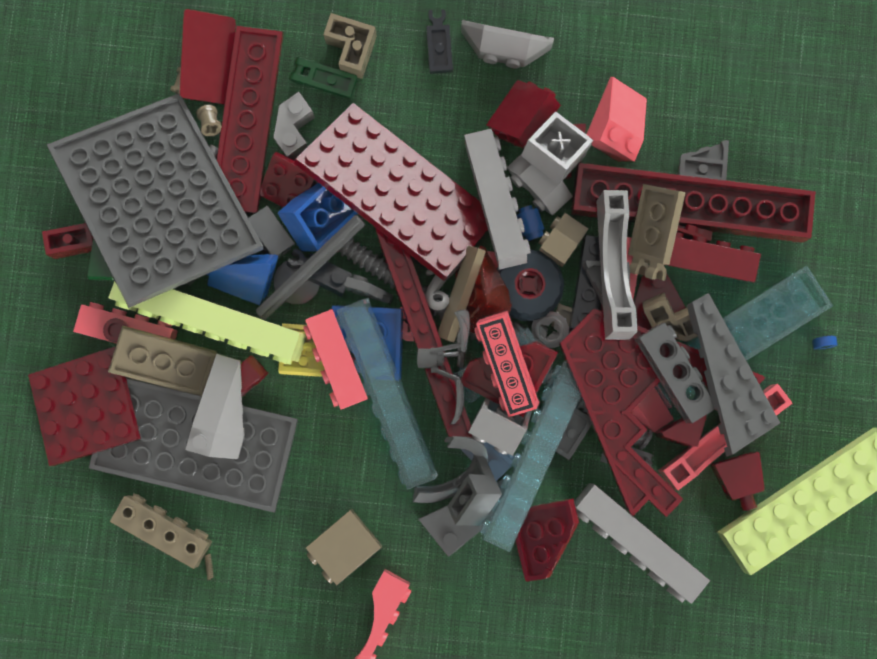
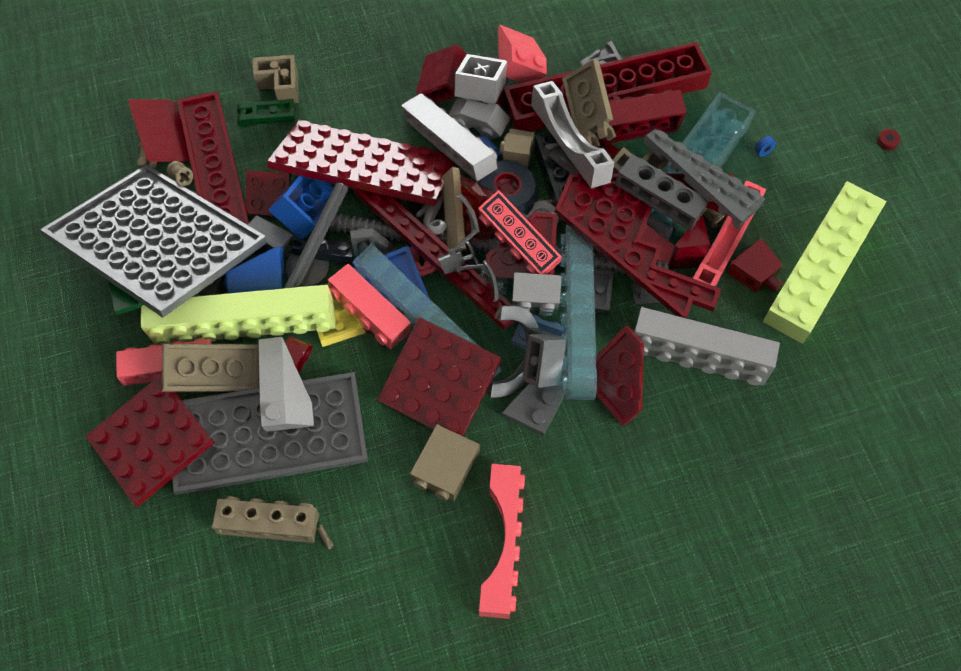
camera: 25 degrees left, 20 degrees down
(67, 241) = (88, 306): dark red brick -> none
(112, 329) = (154, 358): dark red tile -> none
(292, 116) = (253, 144): light grey brick -> none
(372, 464) = (439, 378): none -> dark red plate
(439, 44) = (351, 57): black plate -> none
(505, 45) = (403, 35): light grey wedge -> none

